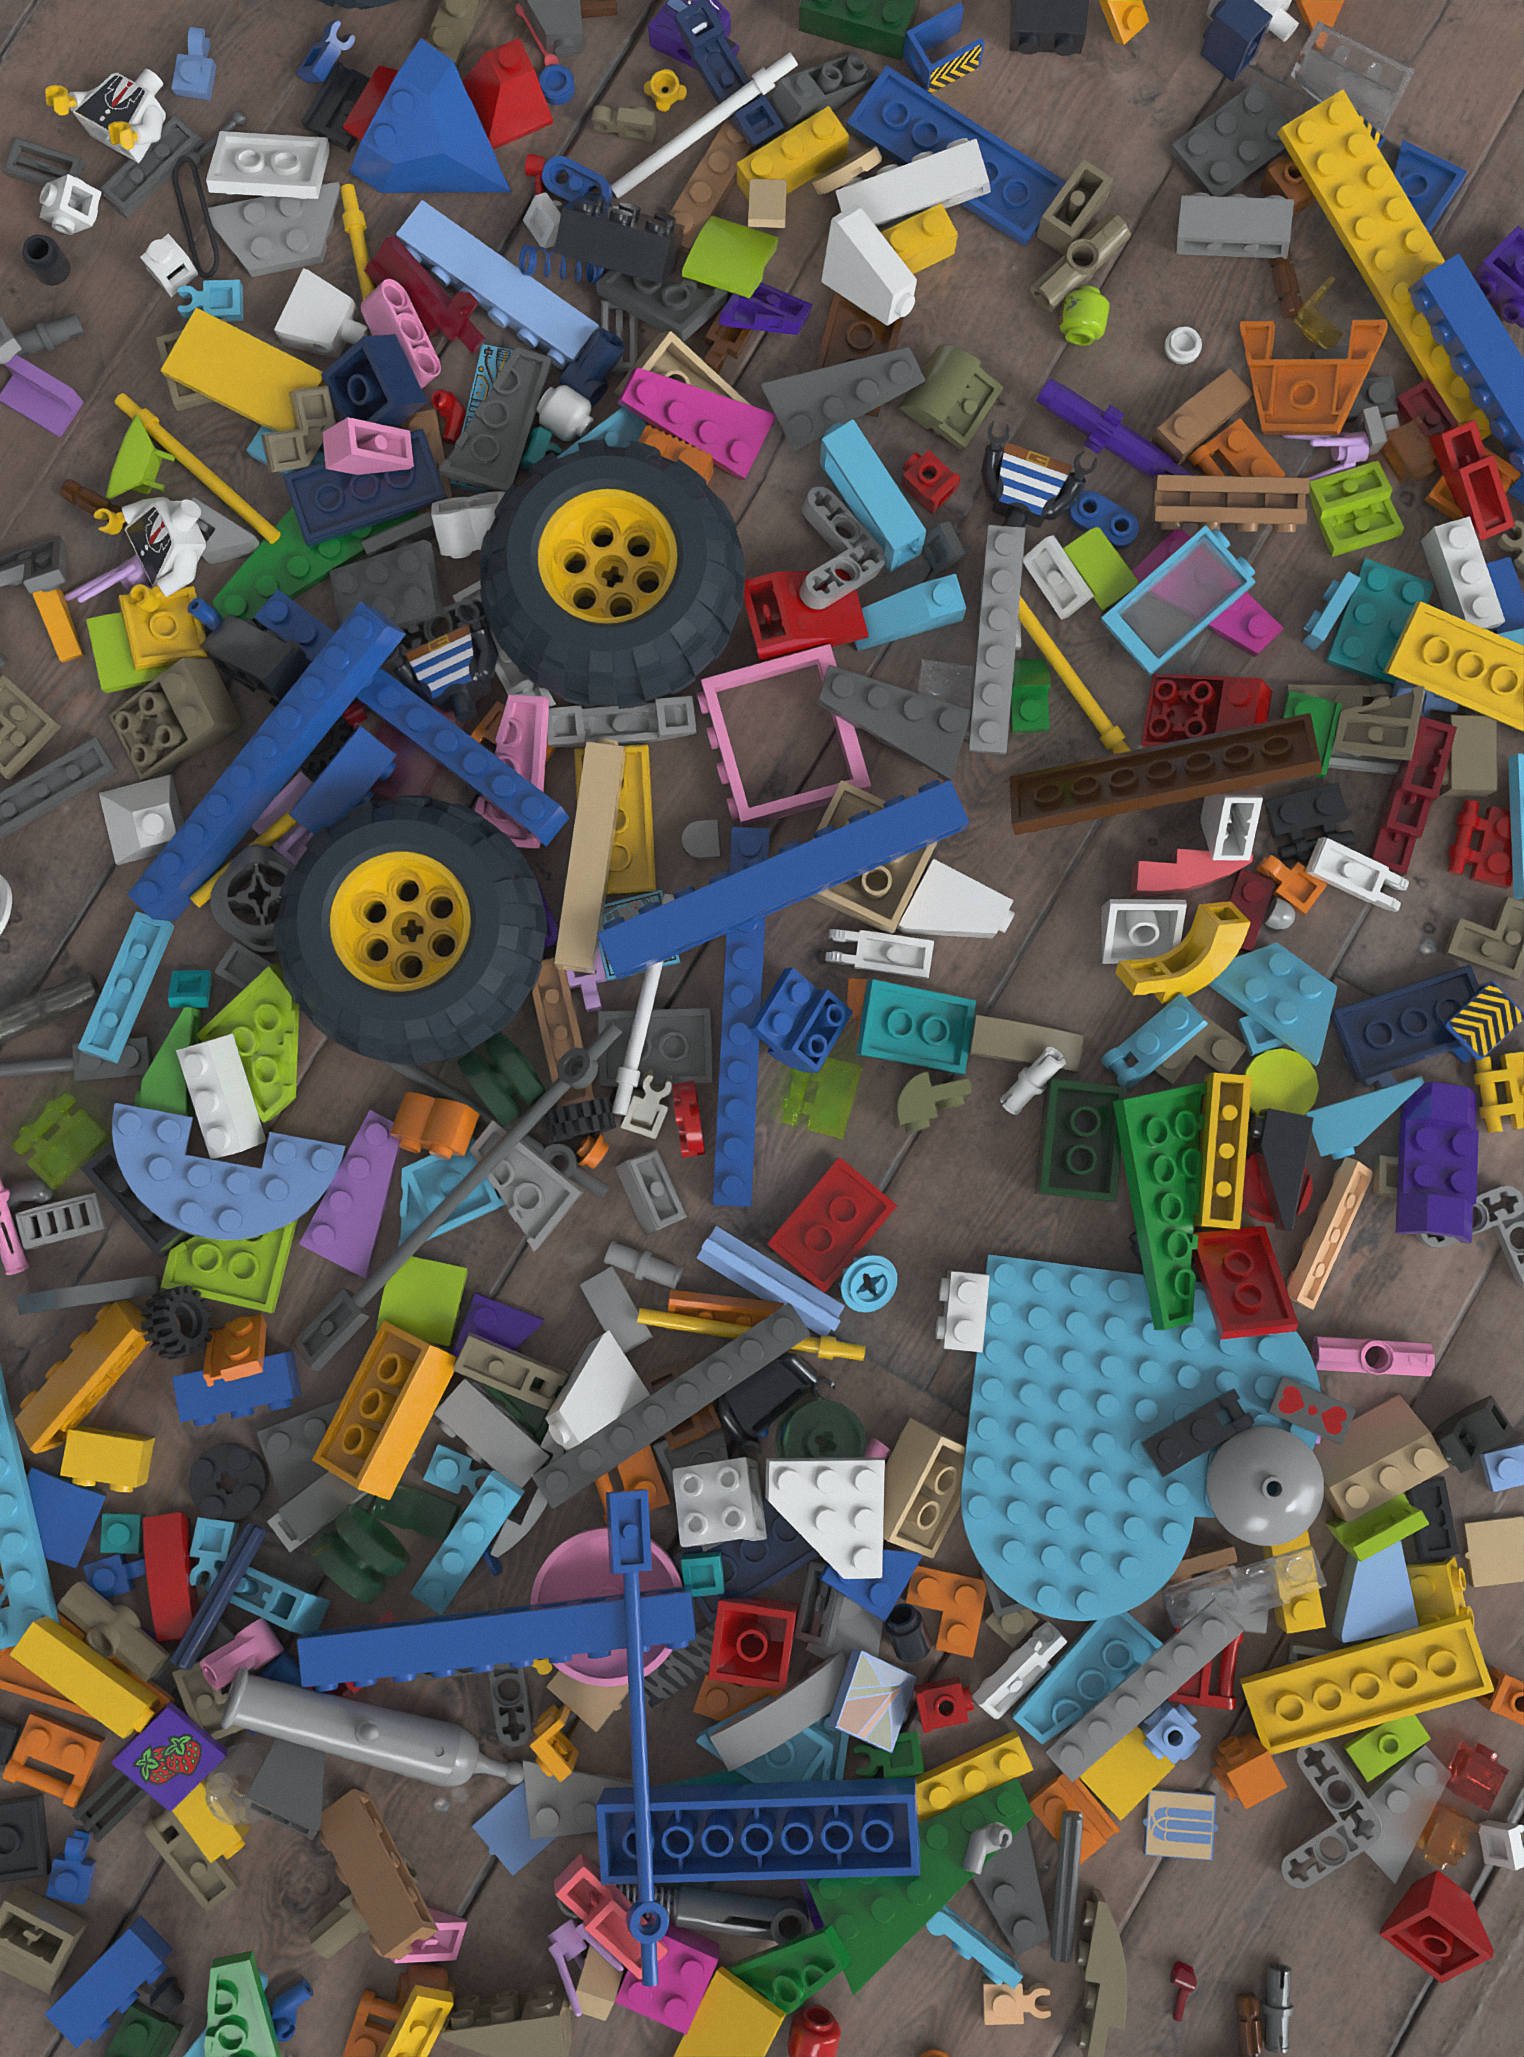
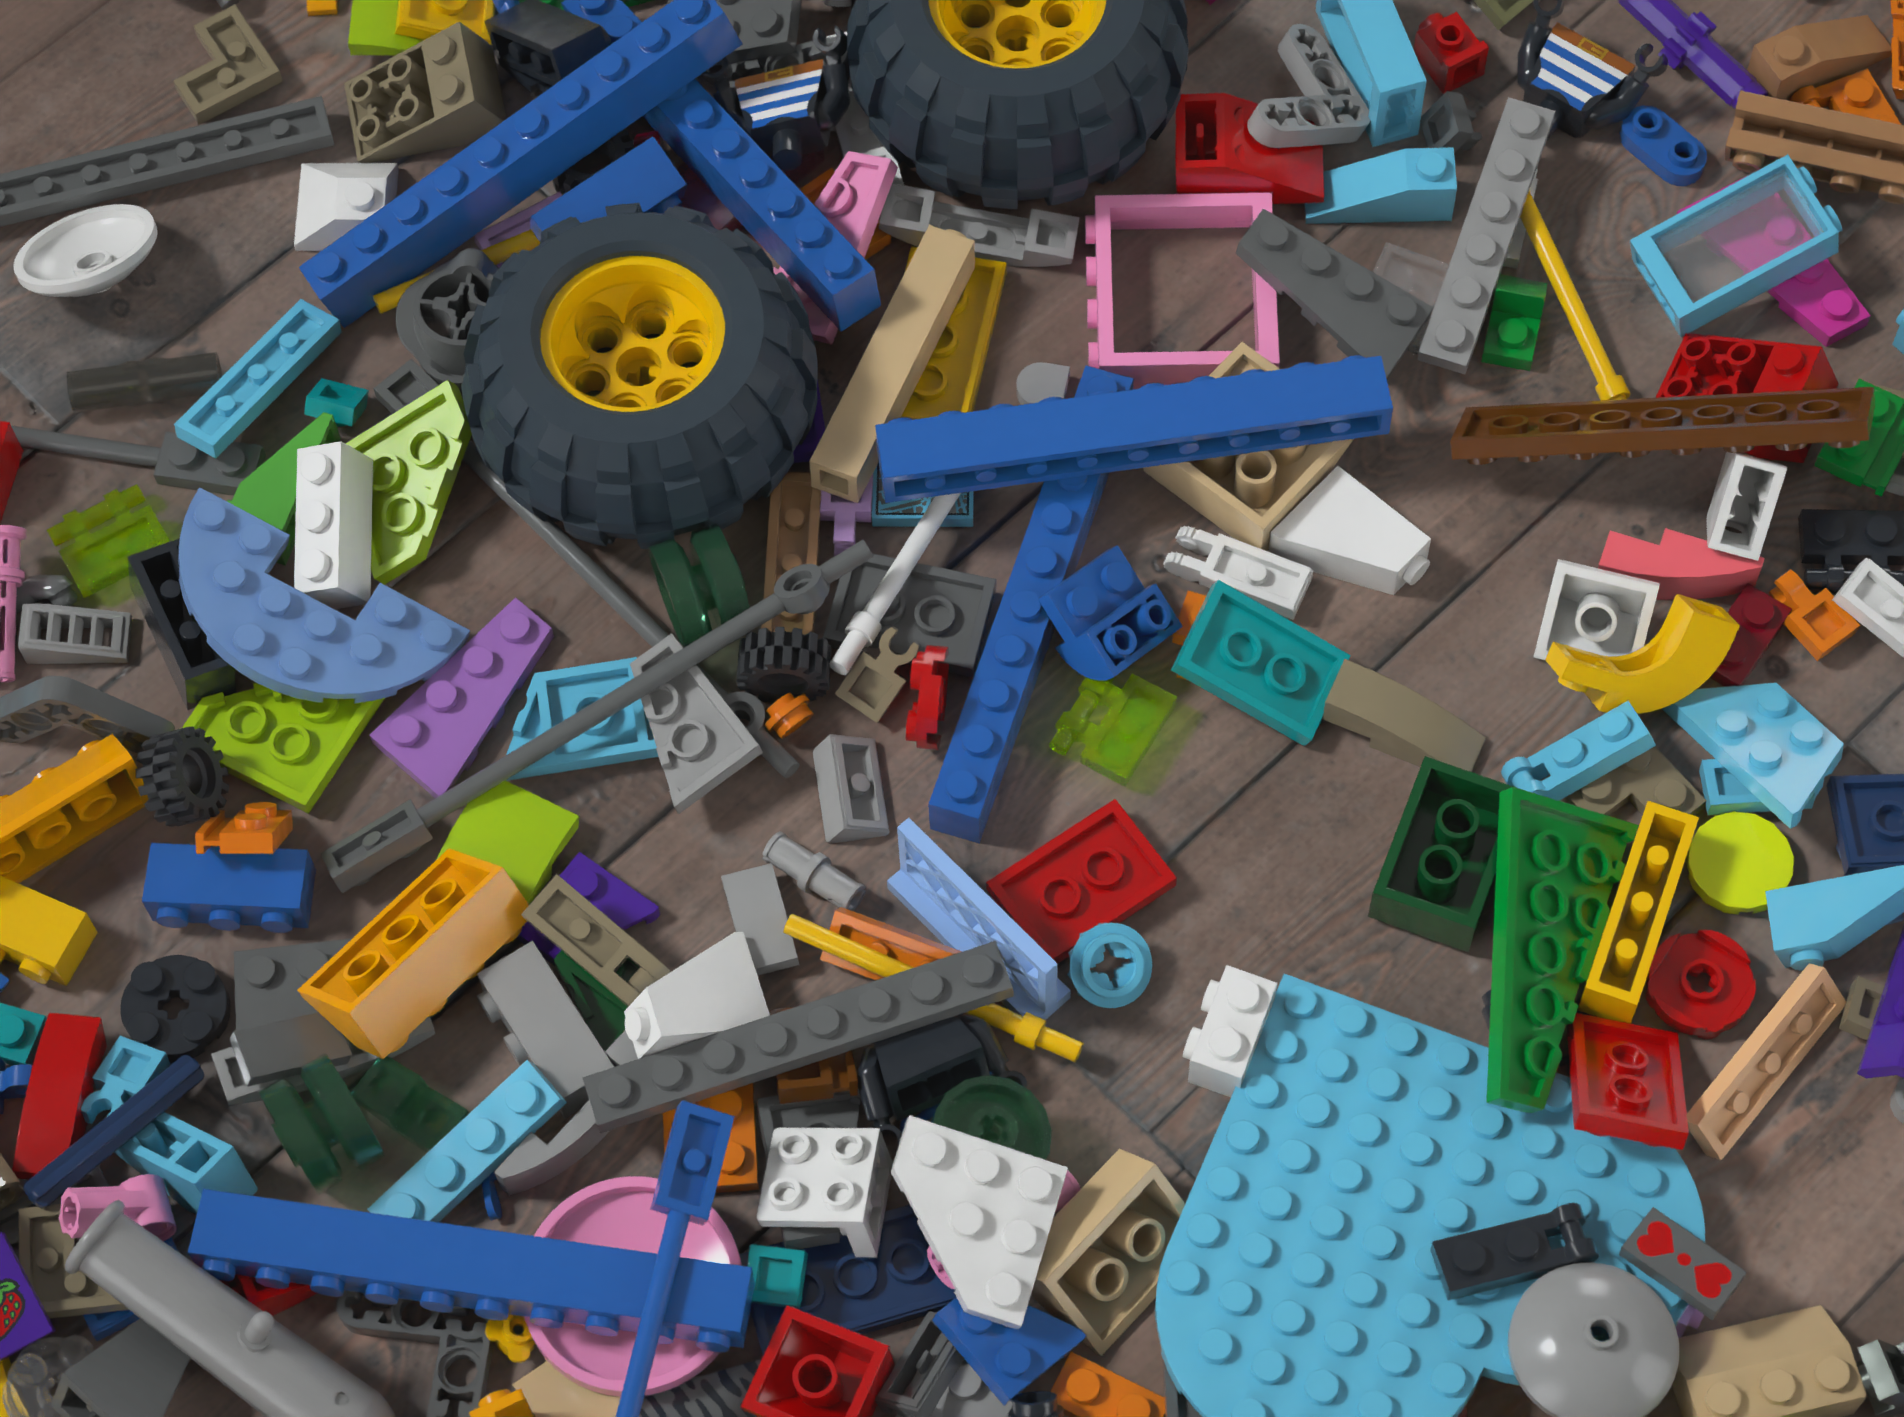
camera: 15 degrees right, 20 degrees down
(434, 1125) = (594, 626): orange brick -> none
(453, 1469) = (473, 1066): medium azure plate -> none
(917, 1101) = (1253, 745): olive brick -> none
(1032, 1080) = (1400, 763): white pin -> none
(1057, 577) = (1586, 191): white plate -> none
(1101, 568) = (1641, 187): lime slope -> none
(1279, 914) = (1788, 650): light grey hinge -> none
(1281, 1155) = (1715, 932): black slope -> none
(1394, 1356) = (1825, 1244): bright pink piece -> none

